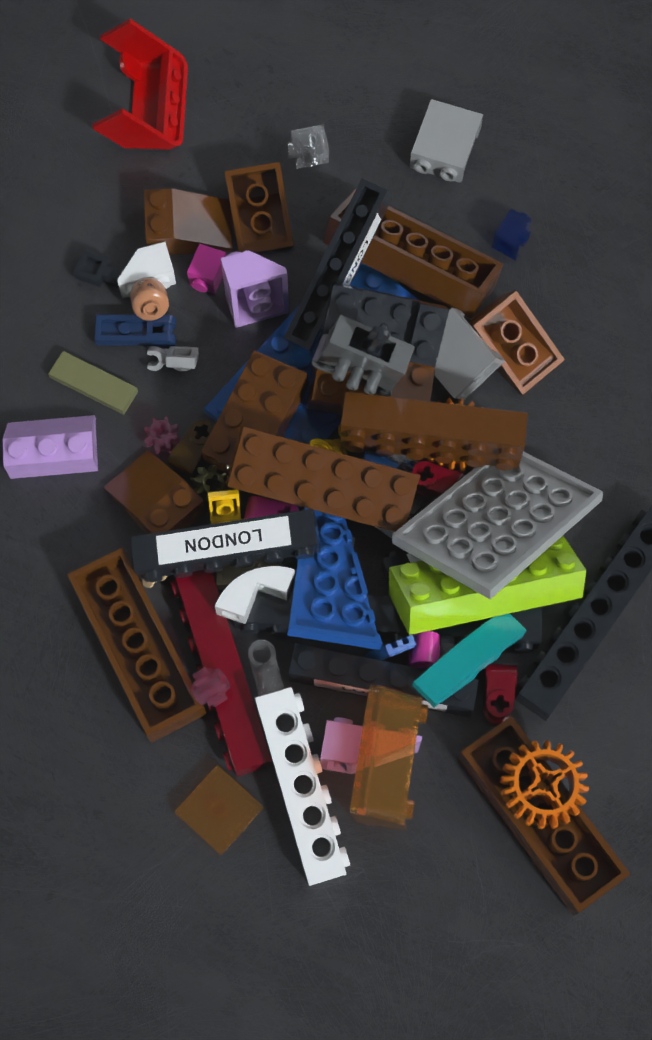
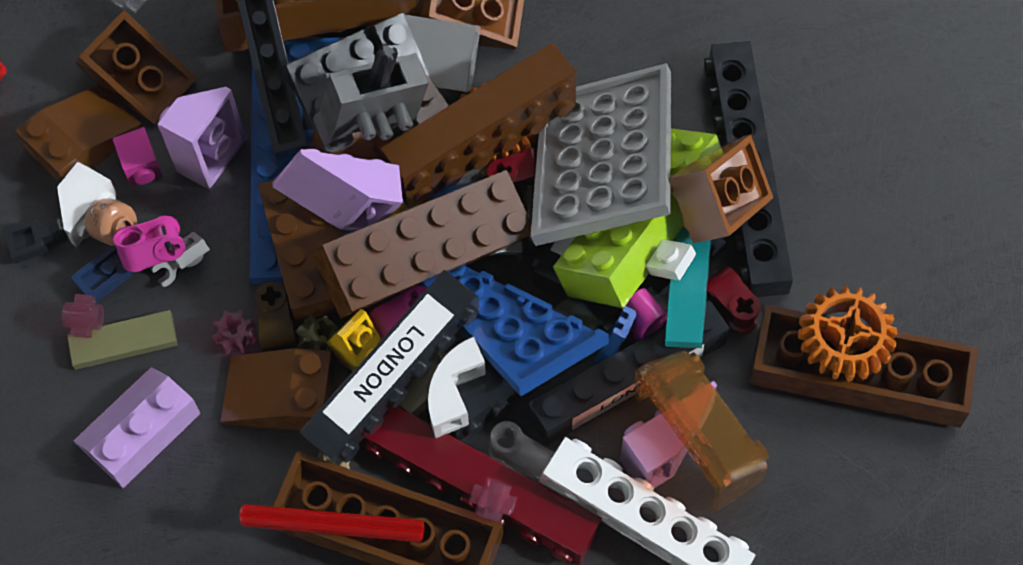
camera: 40 degrees left, 5 degrees down
(79, 347) = (83, 316): none -> clear pink gear
(99, 613) = (331, 523): none -> red axle
(156, 334) = (146, 245): none -> dark pink piece
(296, 400) = (342, 188): none -> lavender slope
(471, 630) = (671, 259): none -> white plate
(551, 612) = (721, 190): none -> dark orange slope

